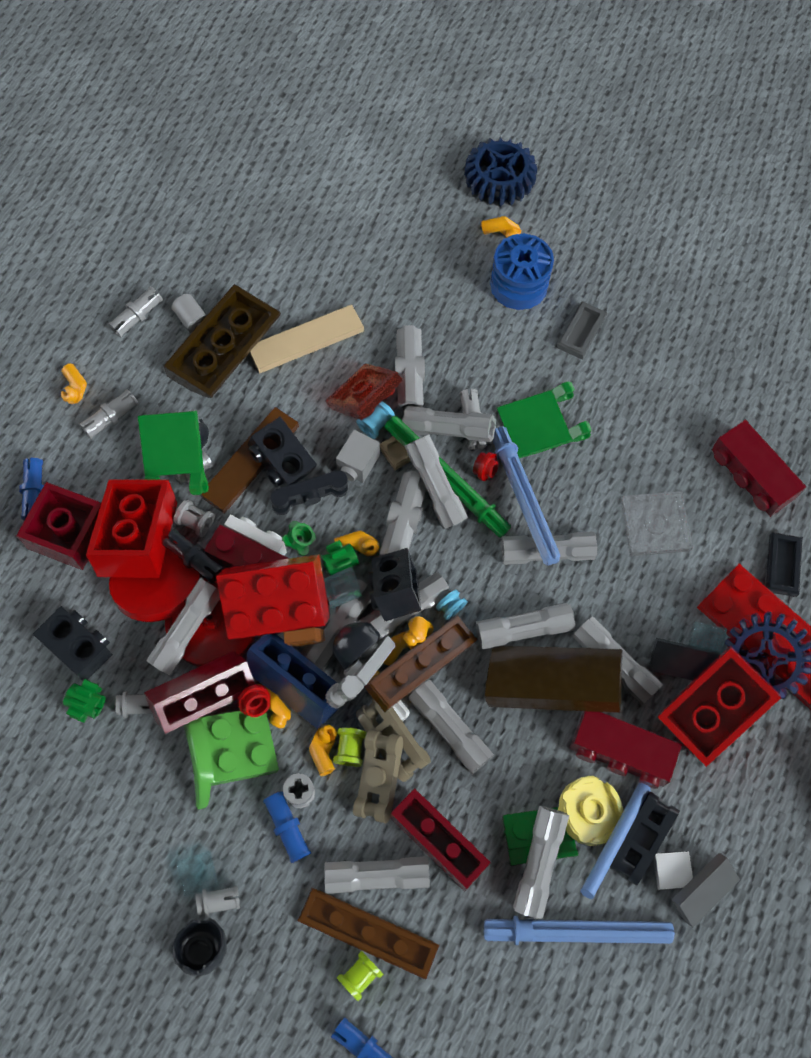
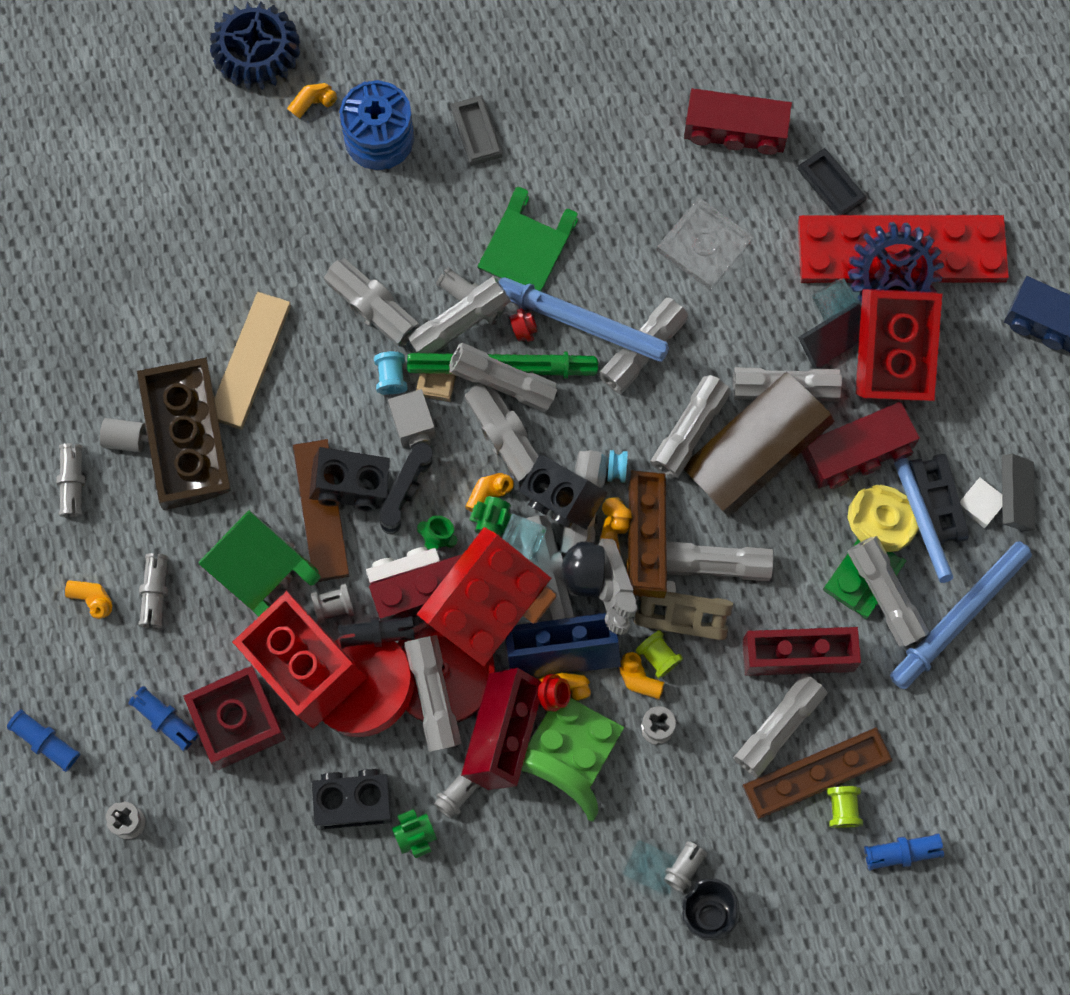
camera: 45 degrees left, 5 degrees up
(286, 826) = (676, 761): blue pin -> none
(364, 391) = (357, 358): clear red plate -> none
(378, 776) = (706, 652): dark tan plate -> none

